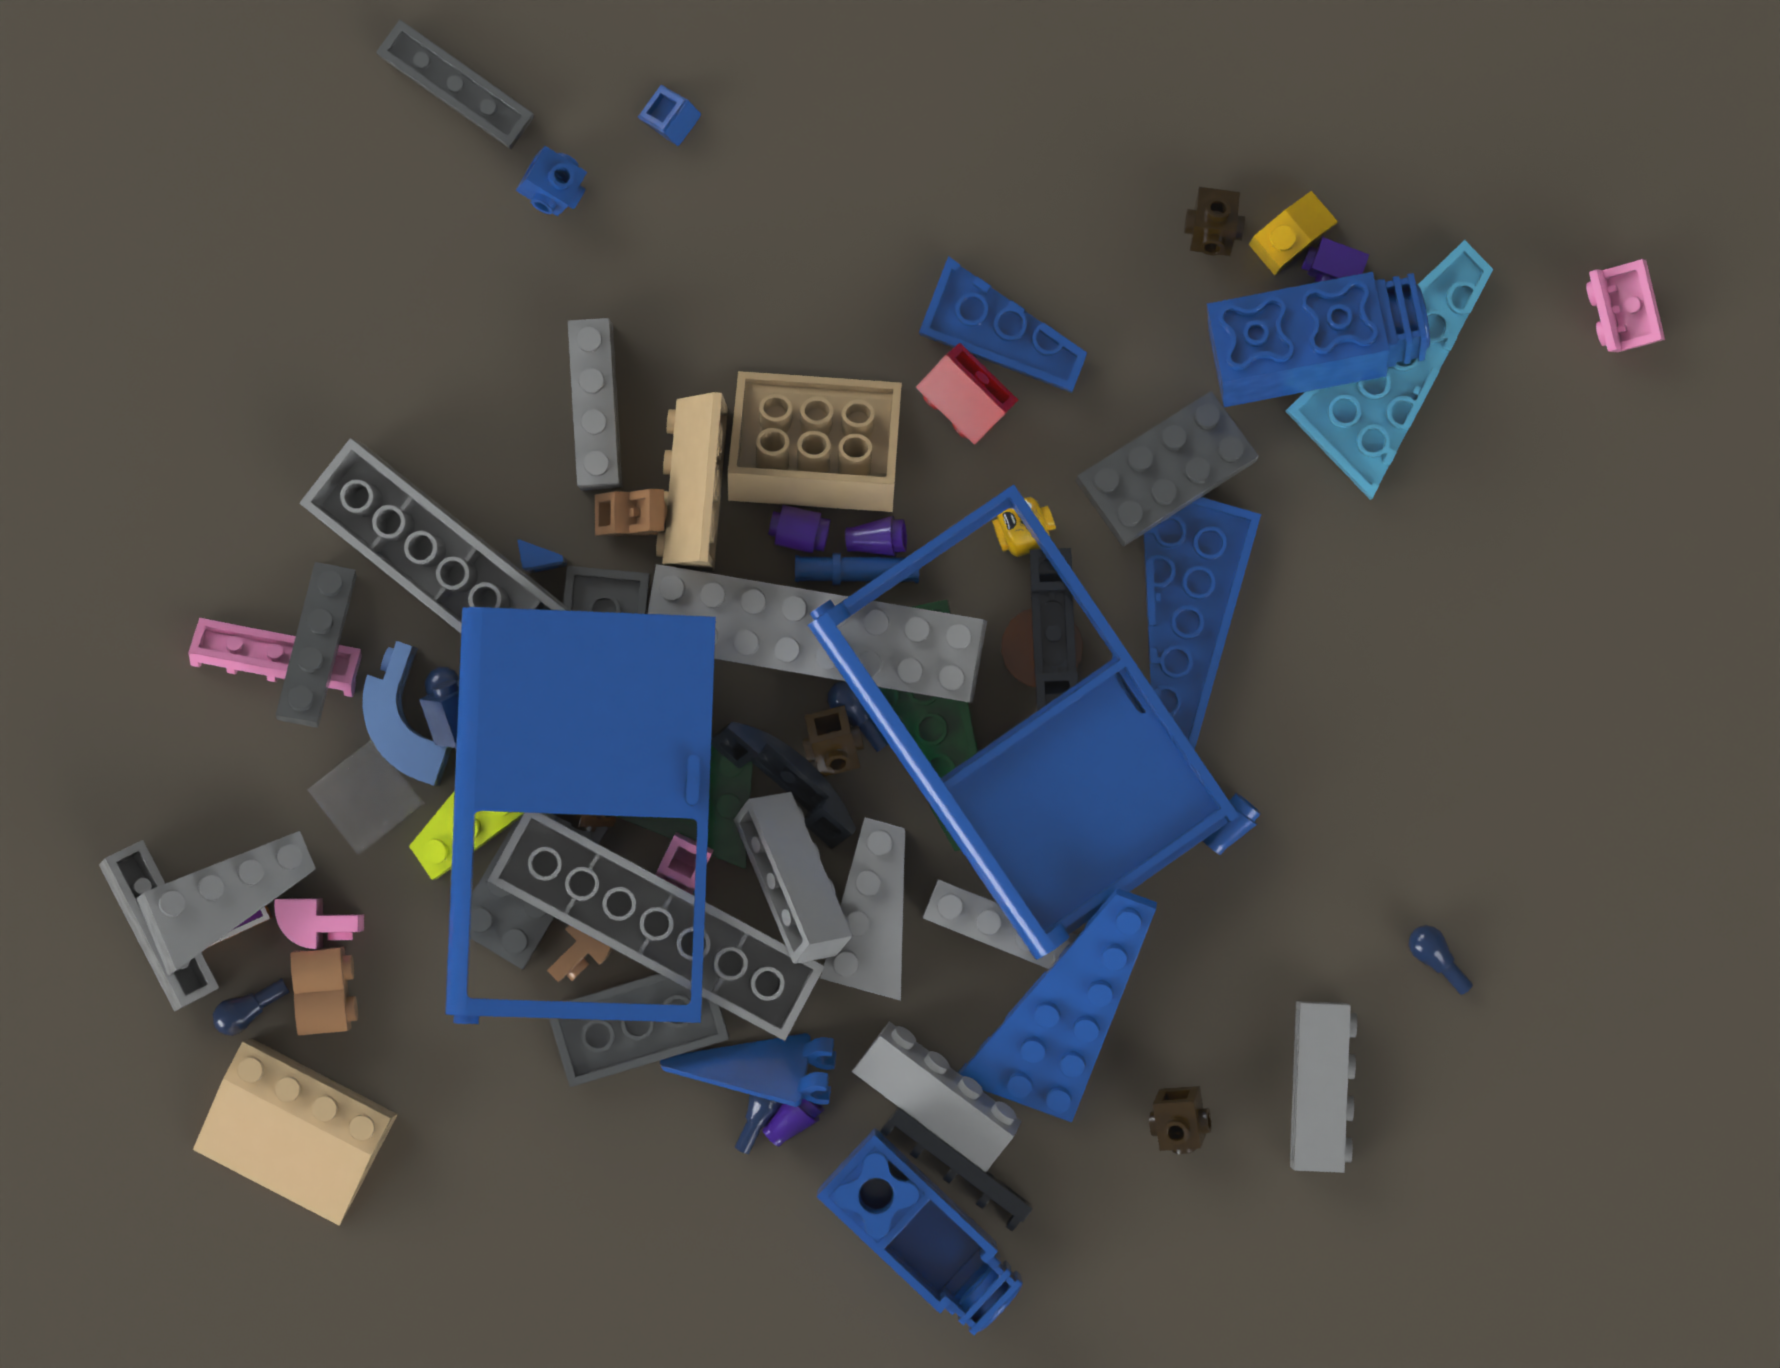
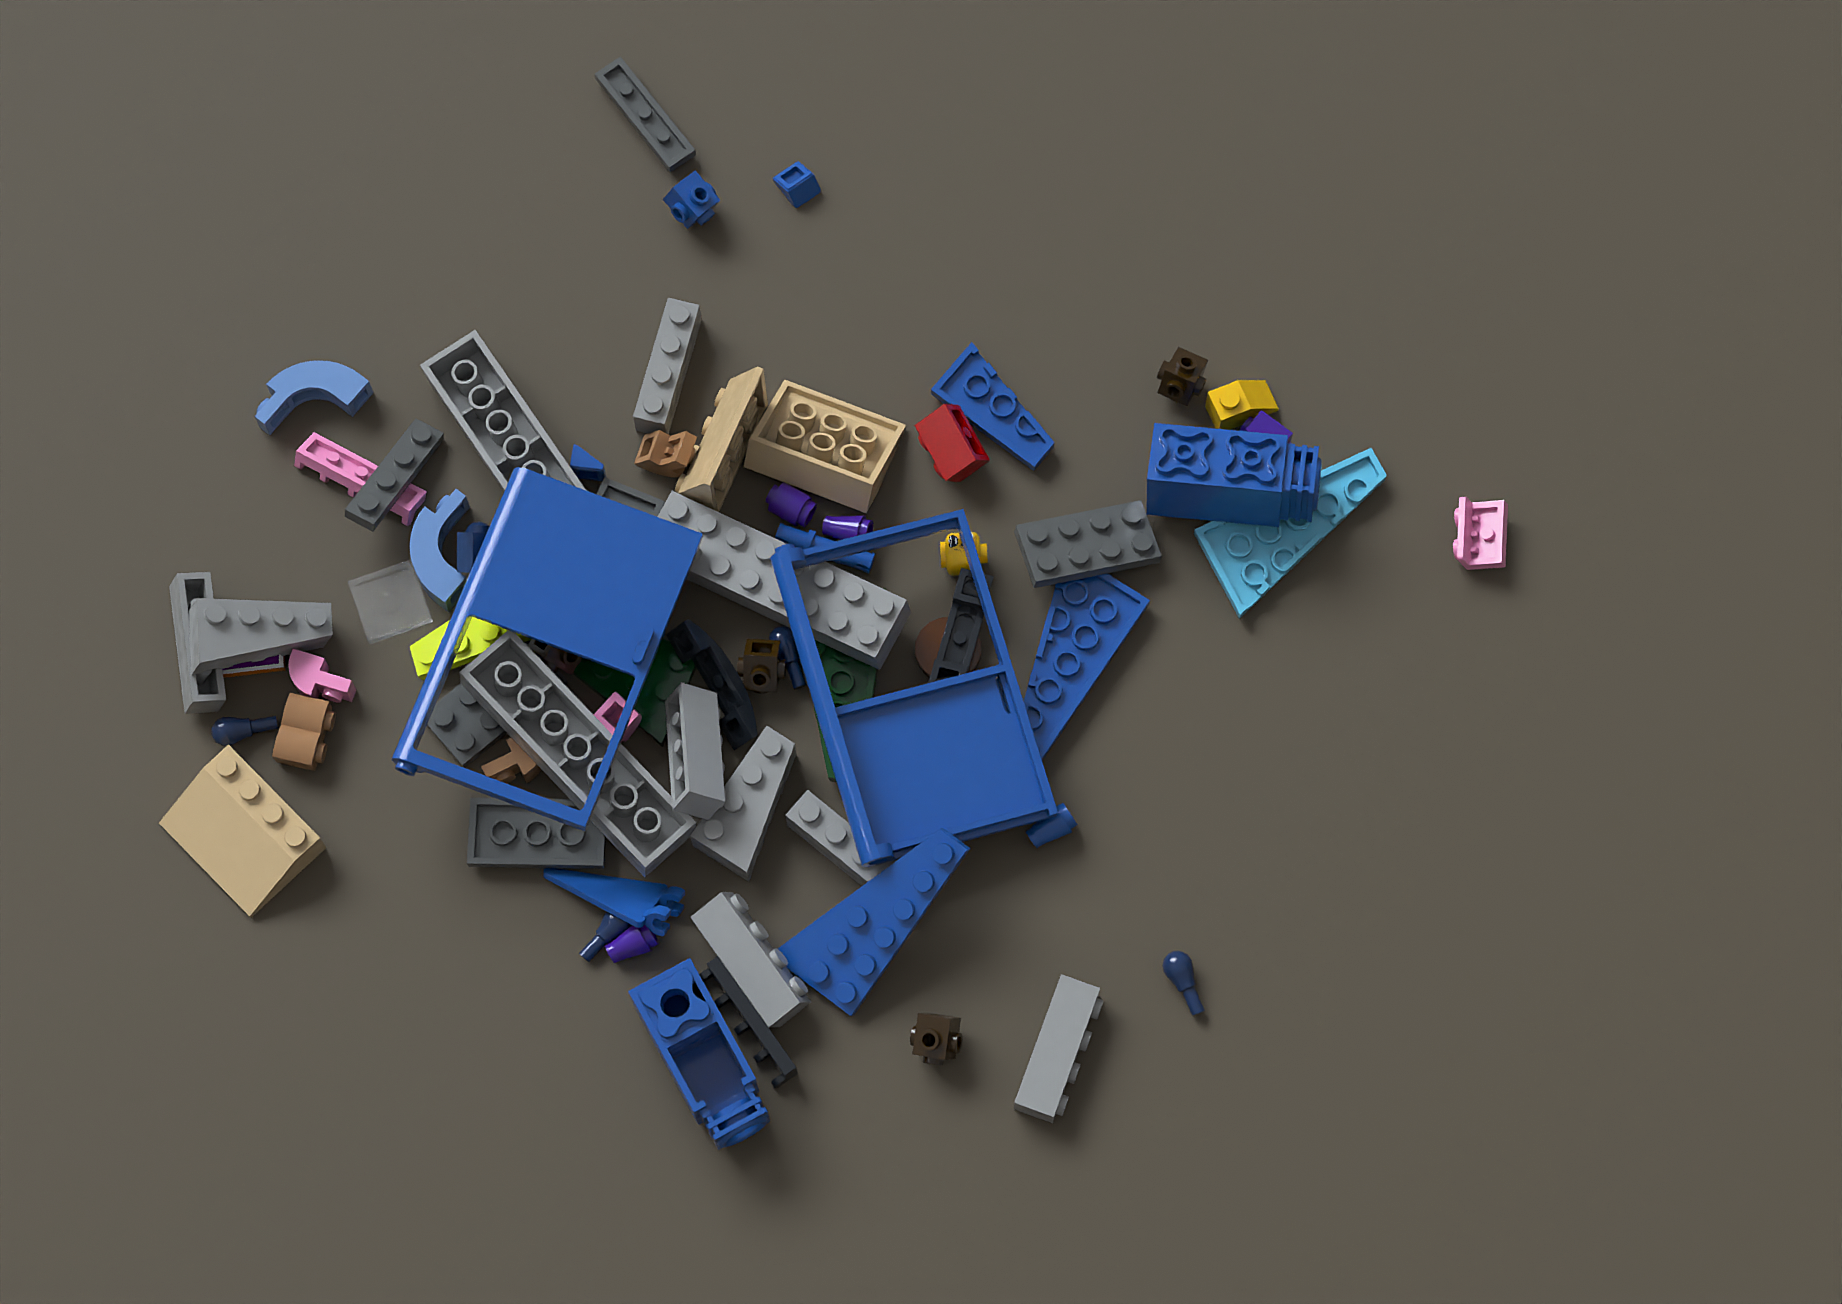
camera: 15 degrees right, 15 degrees down
(170, 558) = (309, 382): none -> medium blue arch

